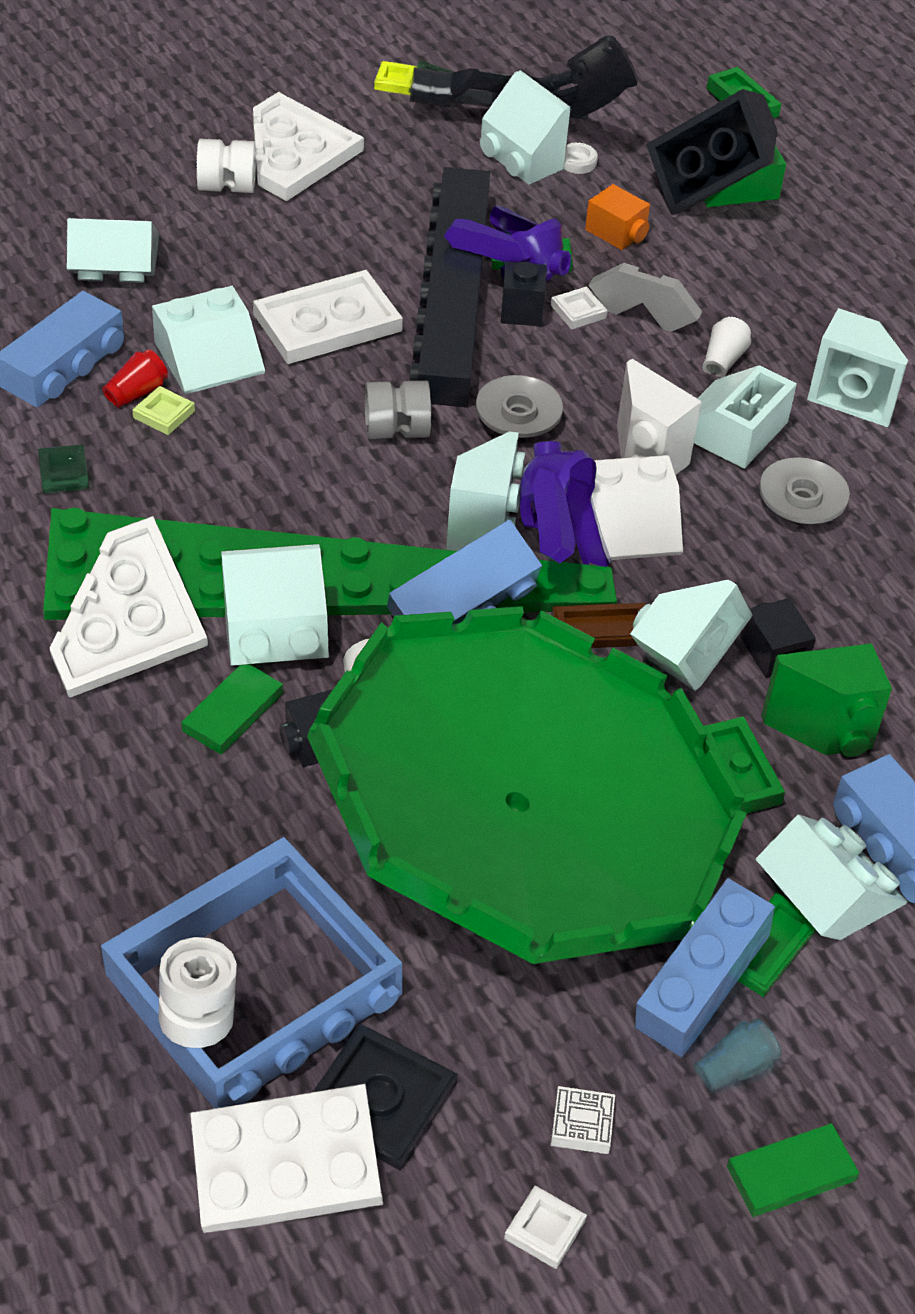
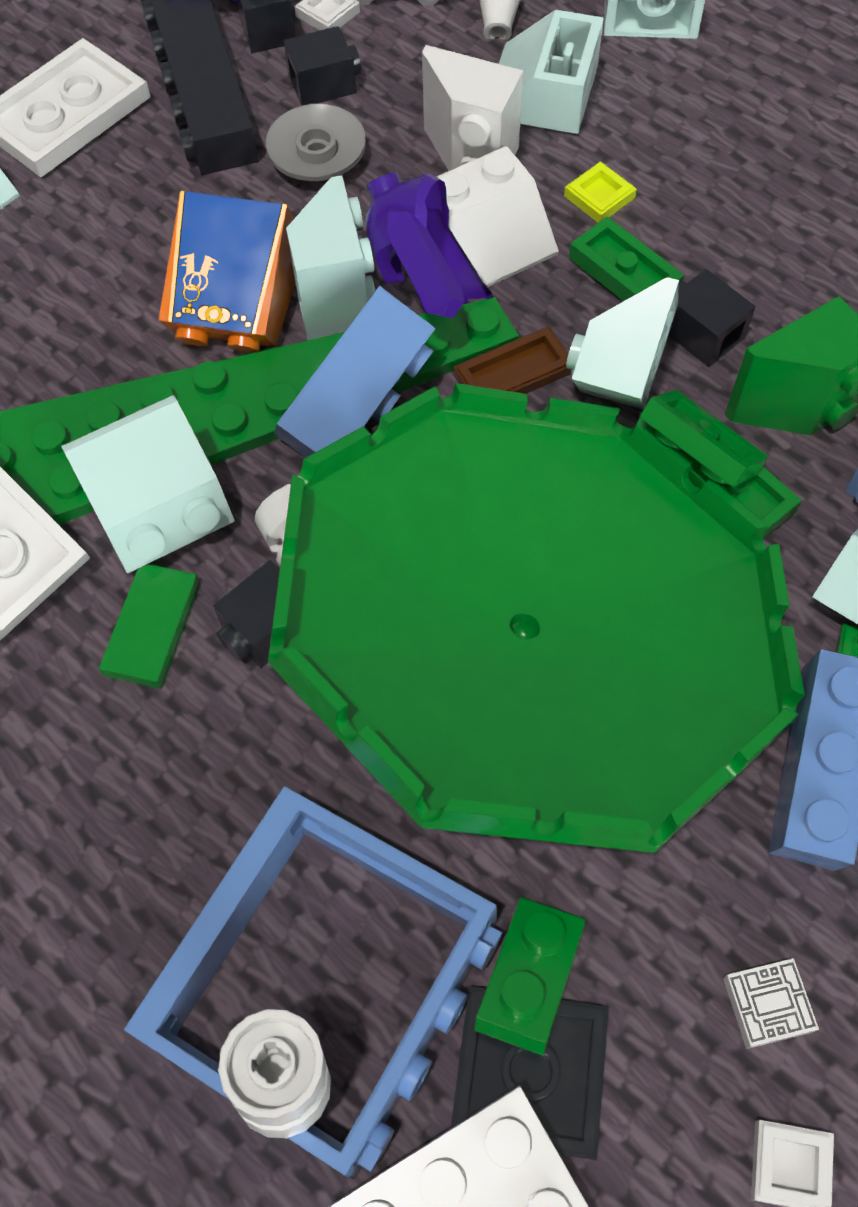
camera: 15 degrees left, 15 degrees up
(397, 409) = (195, 173): light grey wheel -> none
(401, 478) = (228, 272): none -> slope
(409, 1029) = (530, 976): none -> green plate
(551, 350) = (322, 66): none -> black brick
(722, 715) = (687, 426): none -> green plate
(725, 561) = (620, 260): none -> green plate
(740, 518) = (600, 192): none -> neon yellow tile
(804, 490) = (654, 137): light grey dish -> none

